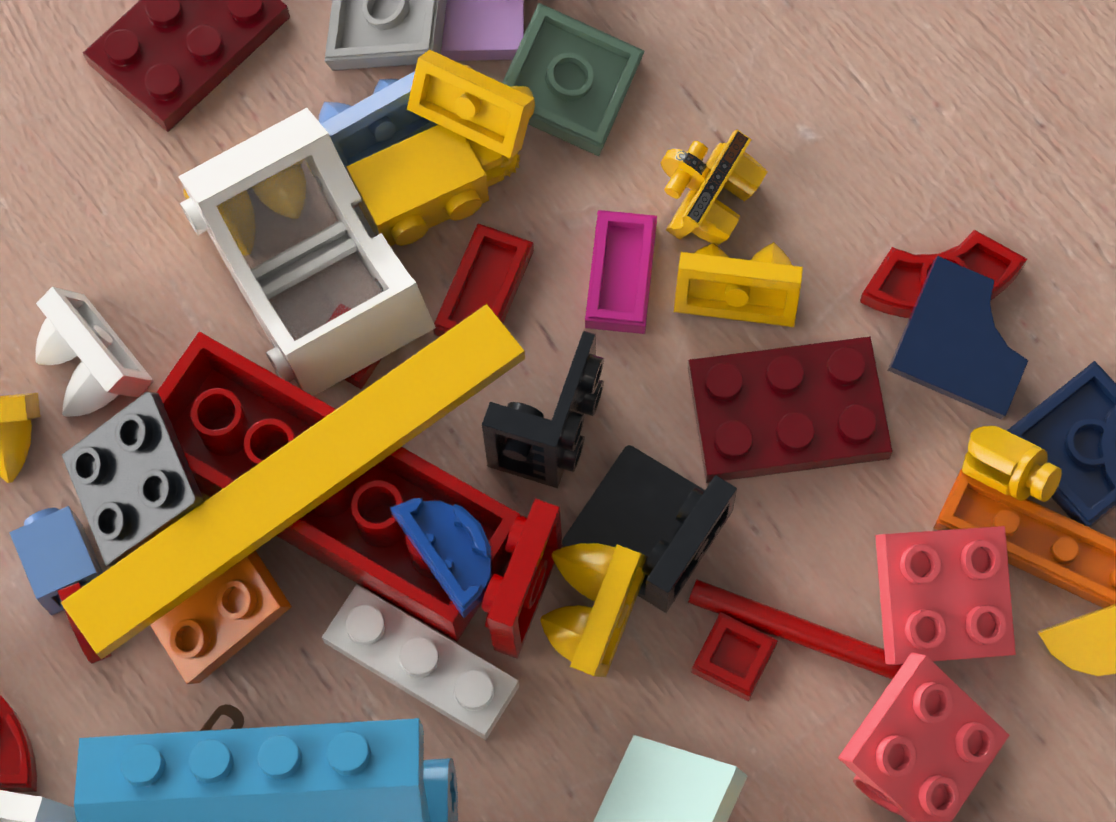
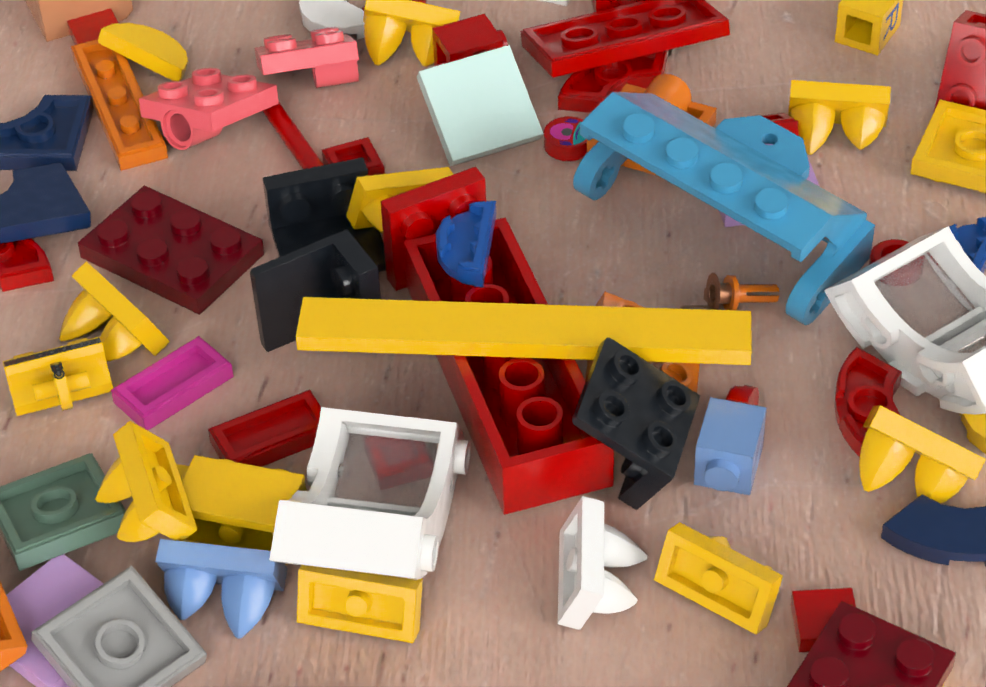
camera: 140 degrees left, 25 degrees down
(421, 661) = (545, 257): white plate -> none
(1010, 464) = (94, 131): yellow arm -> none

